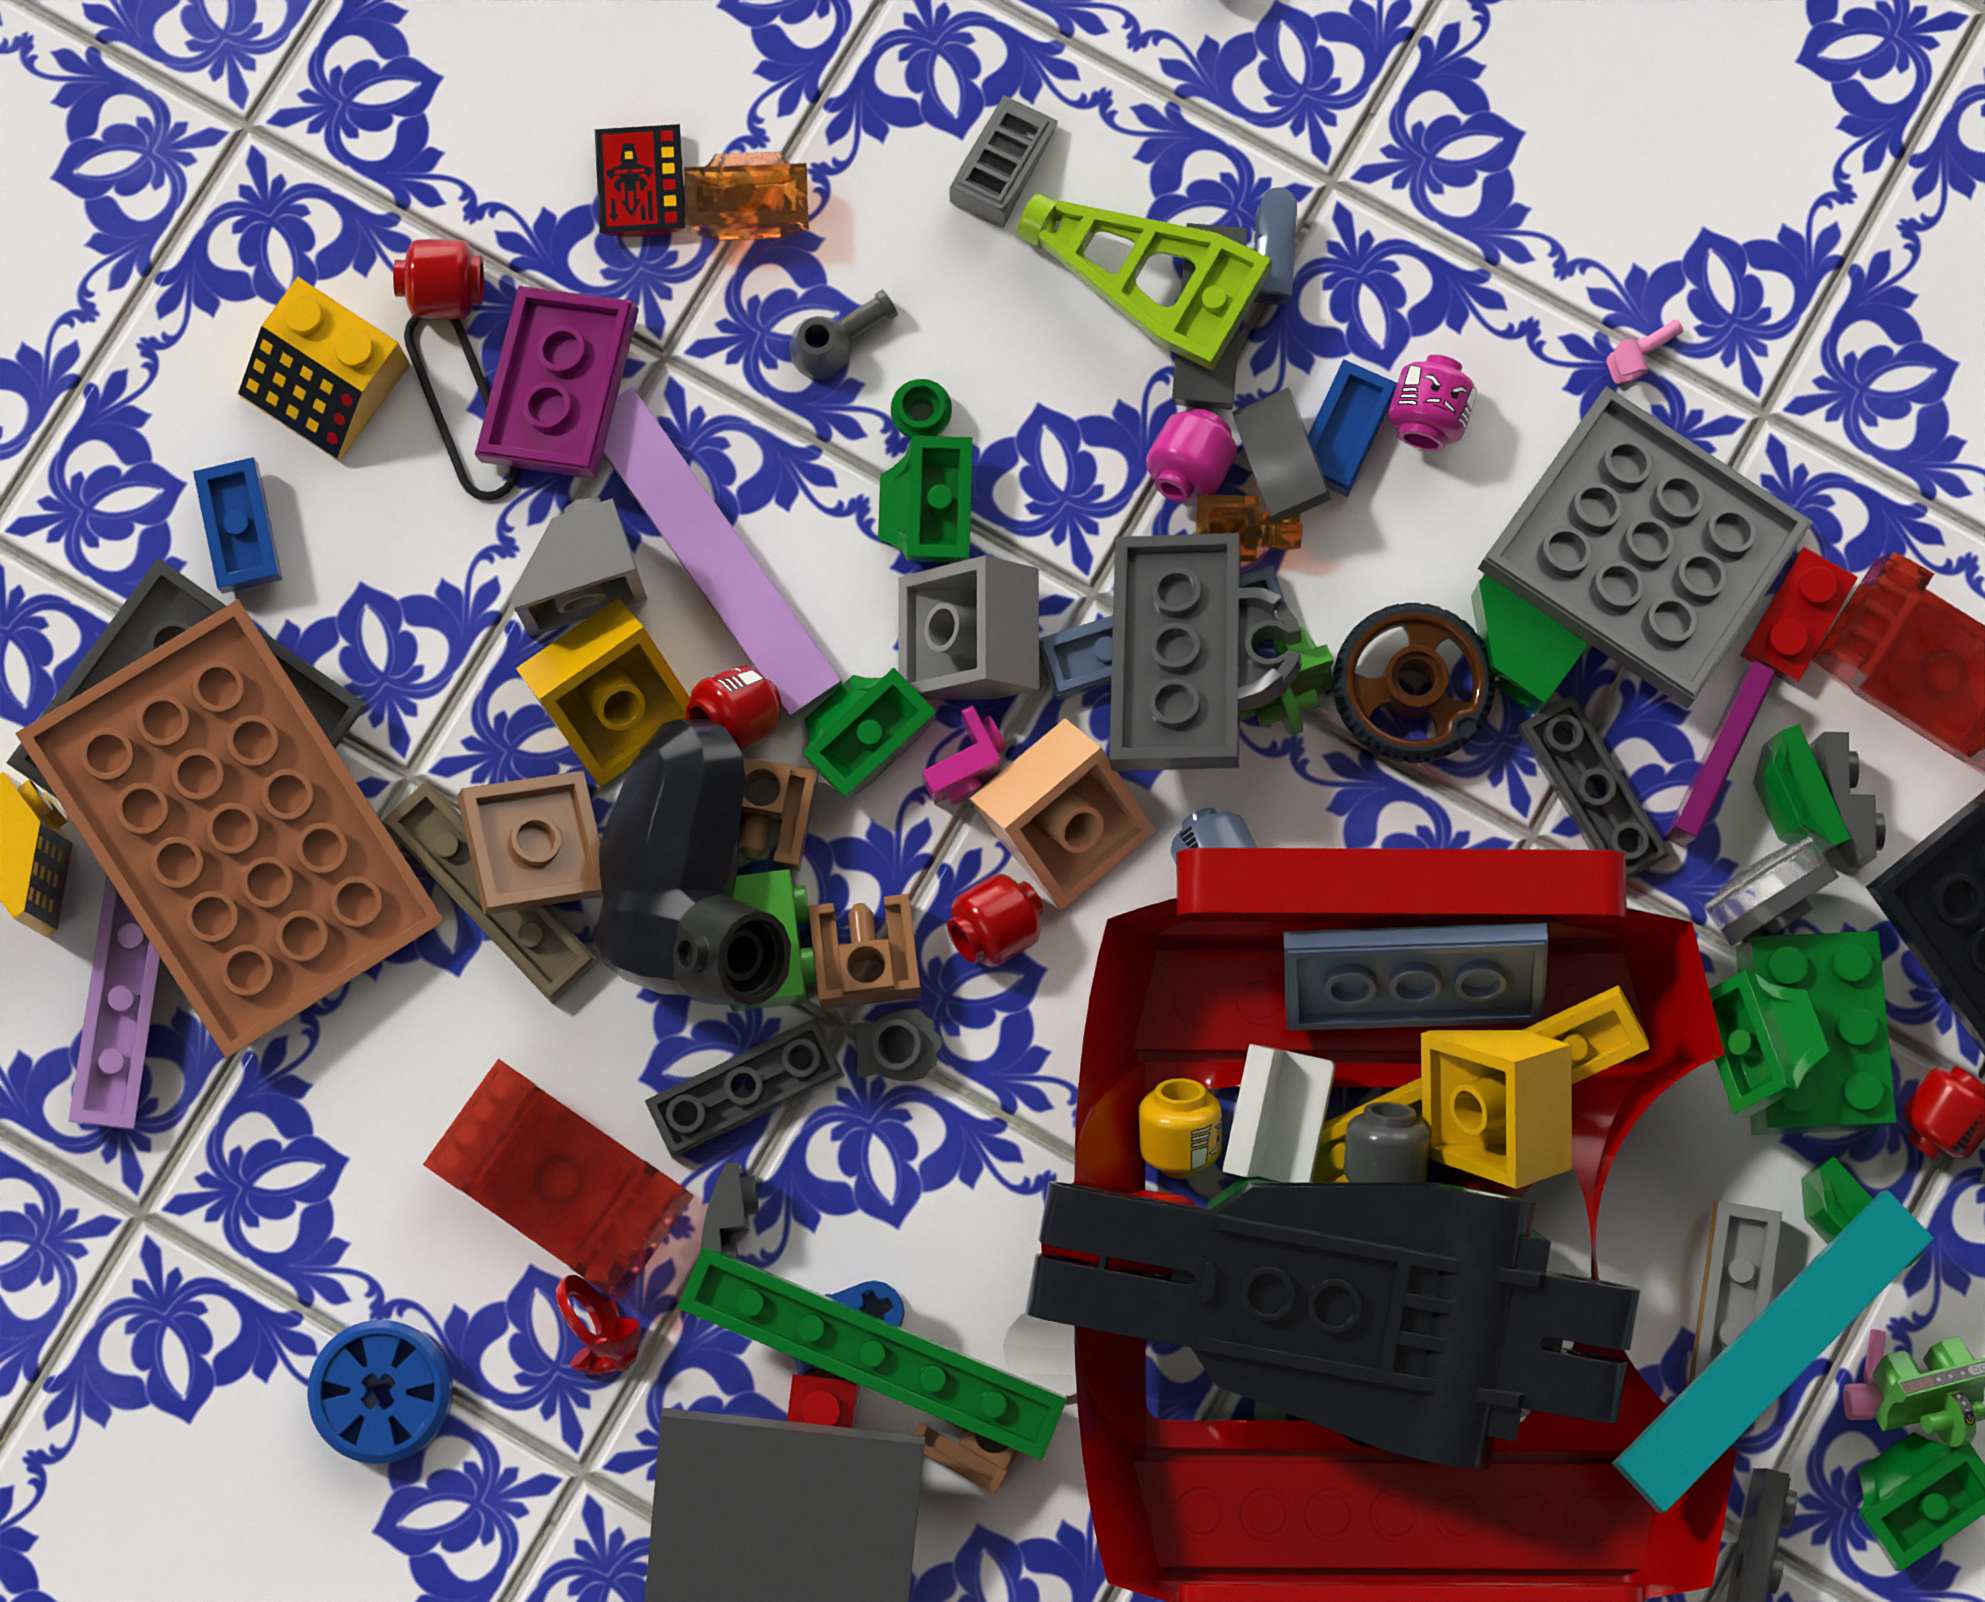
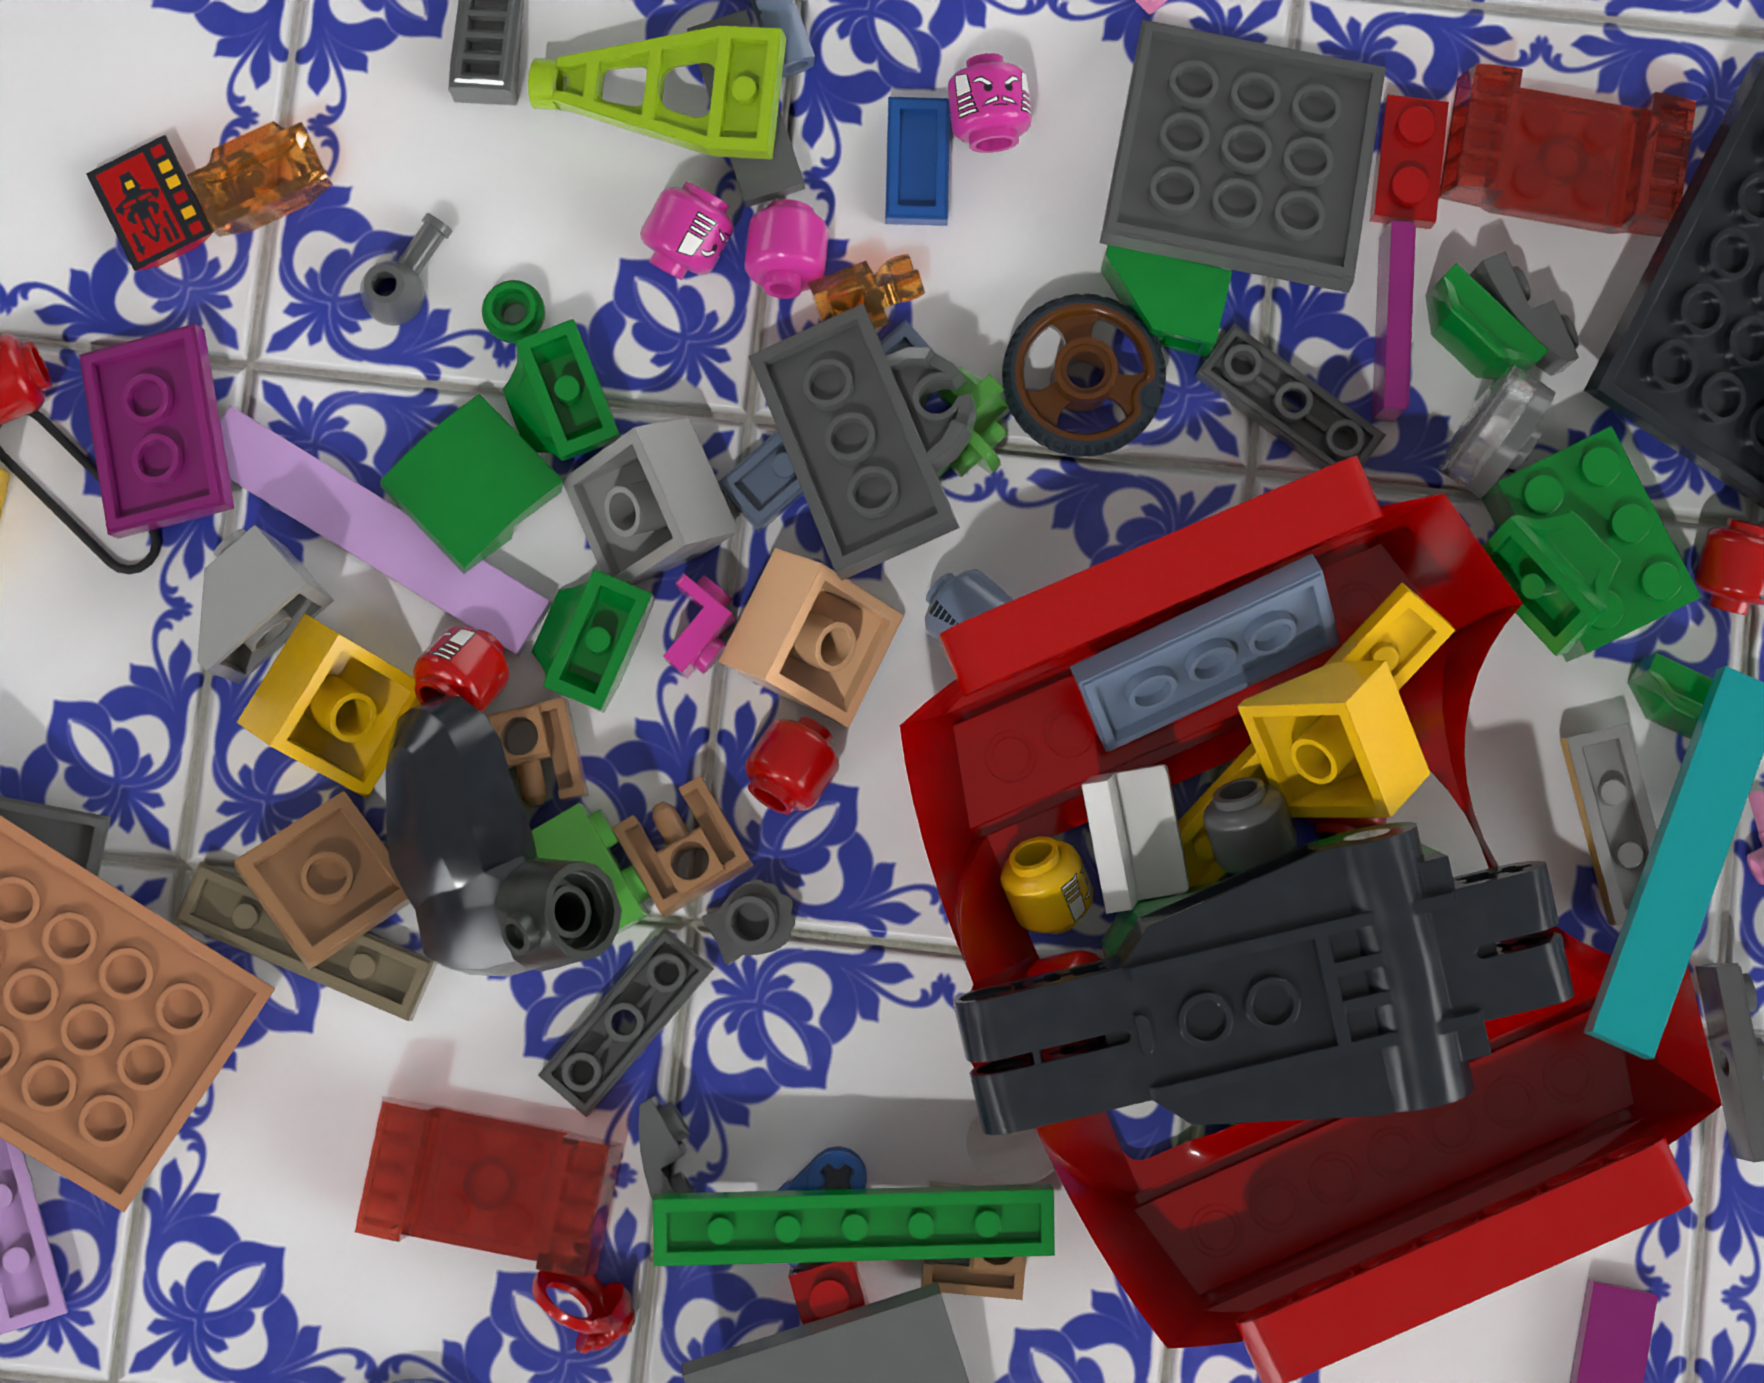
camera: 25 degrees left, 5 degrees up
(817, 546) = (471, 483): none -> green slope
(1108, 402) = (687, 230): none -> dark pink head
(1281, 456) = (870, 213): dark grey slope -> none

